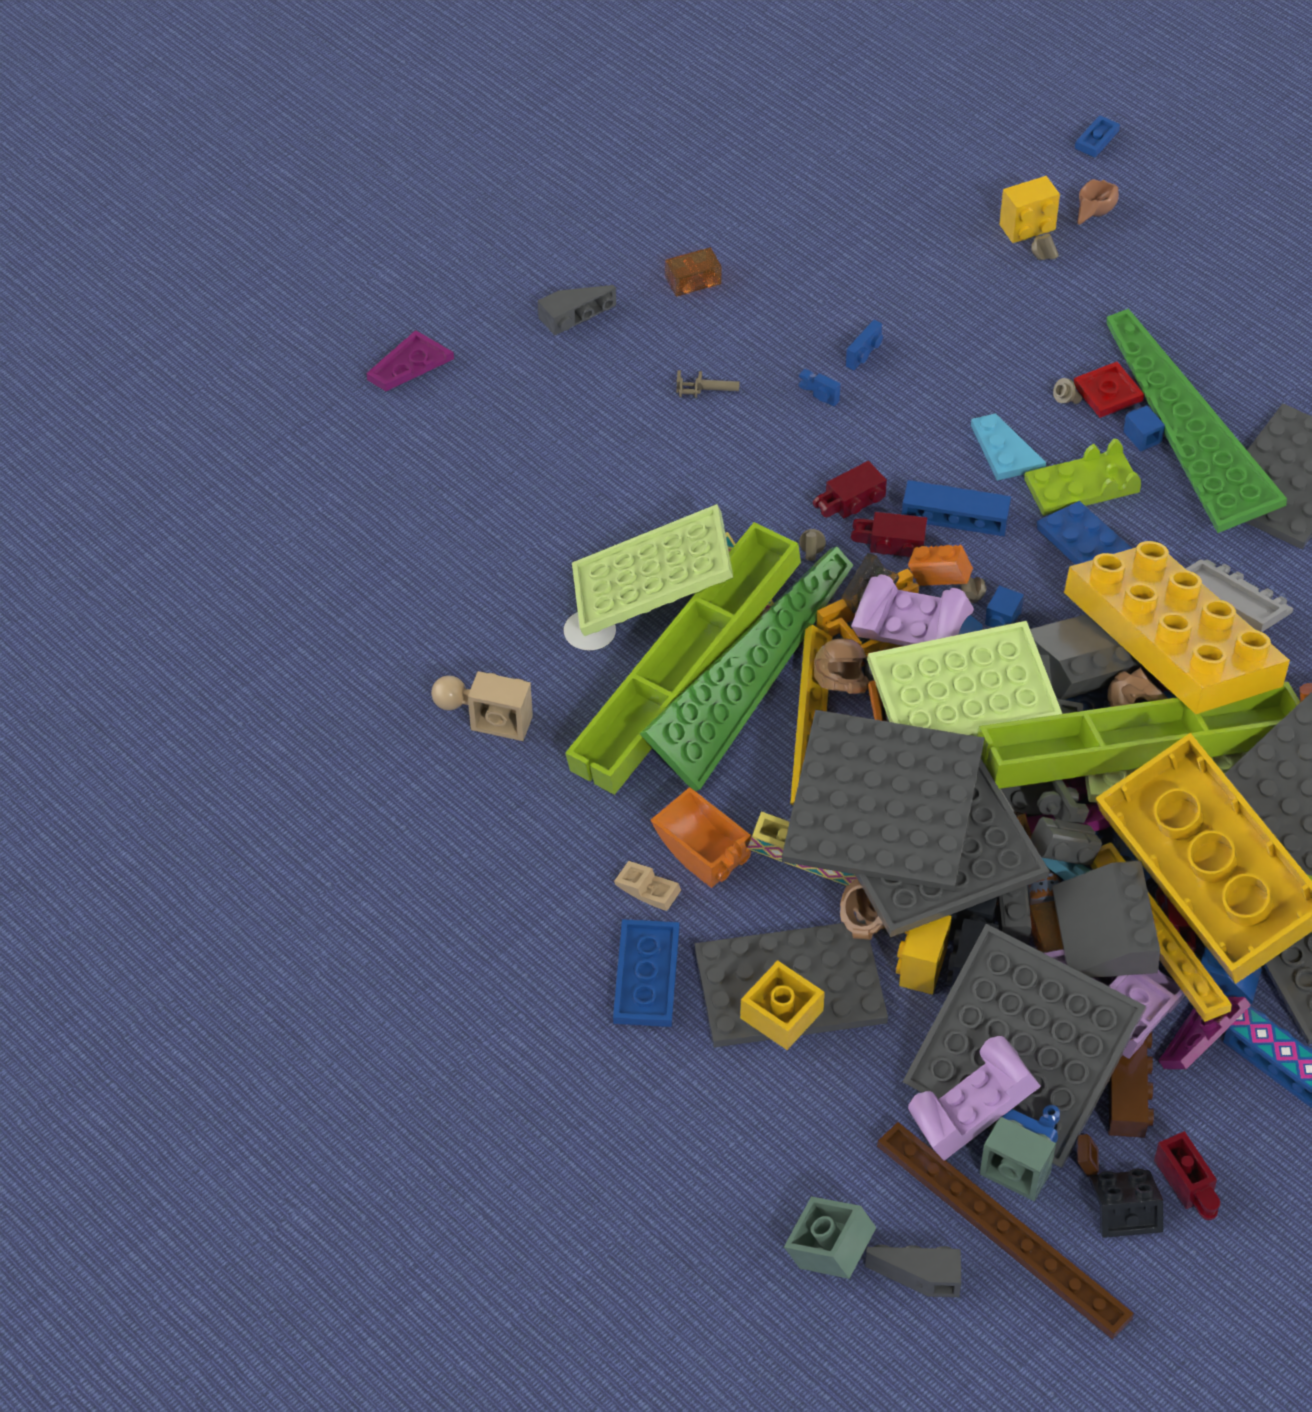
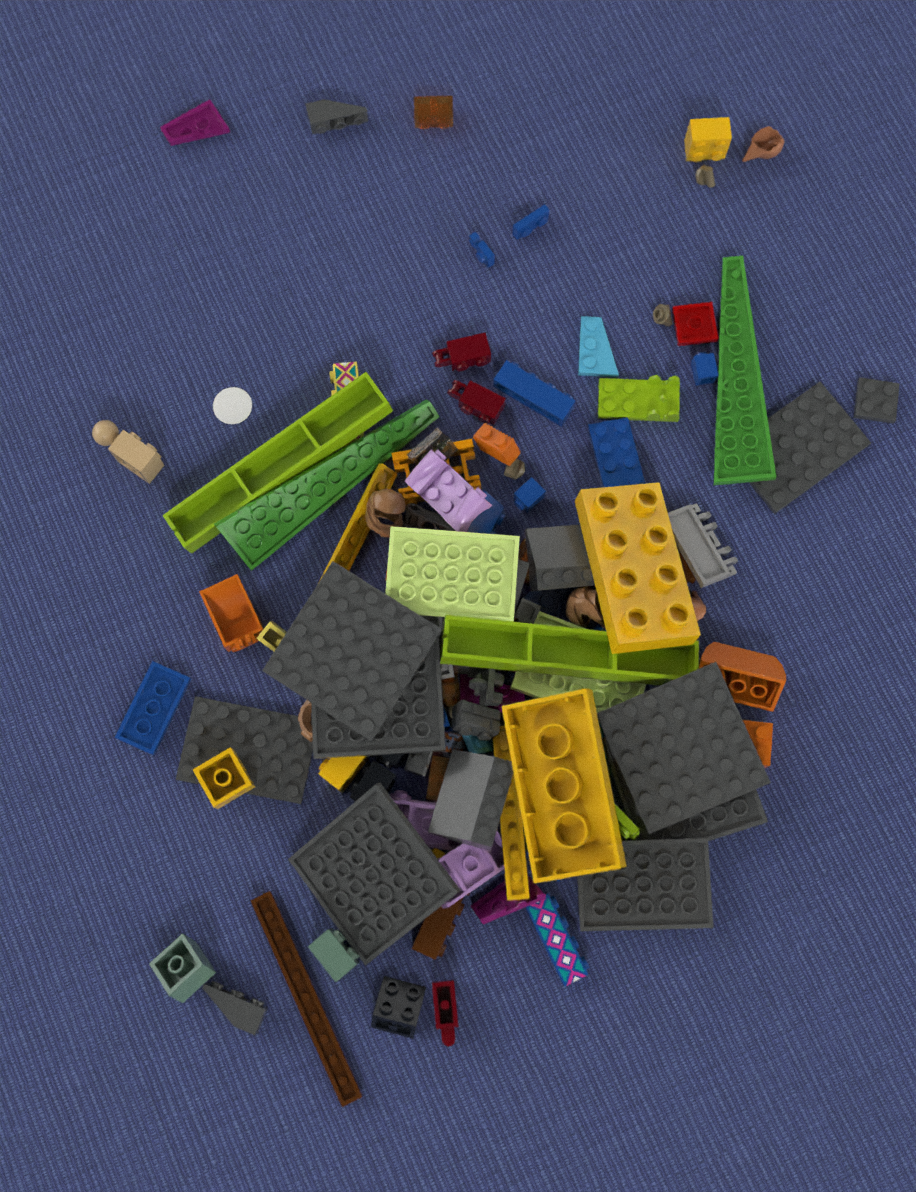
camera: 20 degrees right, 25 degrees up
(647, 887) = (183, 636): tan slope -> none
(651, 570) = (283, 381): yellowish green plate -> none
(704, 385) = (399, 217): dark tan piece -> none
(812, 542) = (418, 387): dark tan plate -> none
(976, 1100) = (320, 903): lavender piece -> none
(1046, 1124) = (355, 941): blue piece -> none
(1088, 1155) = (386, 964): reddish brown tile -> none
(1097, 136) = (795, 82): blue plate -> none

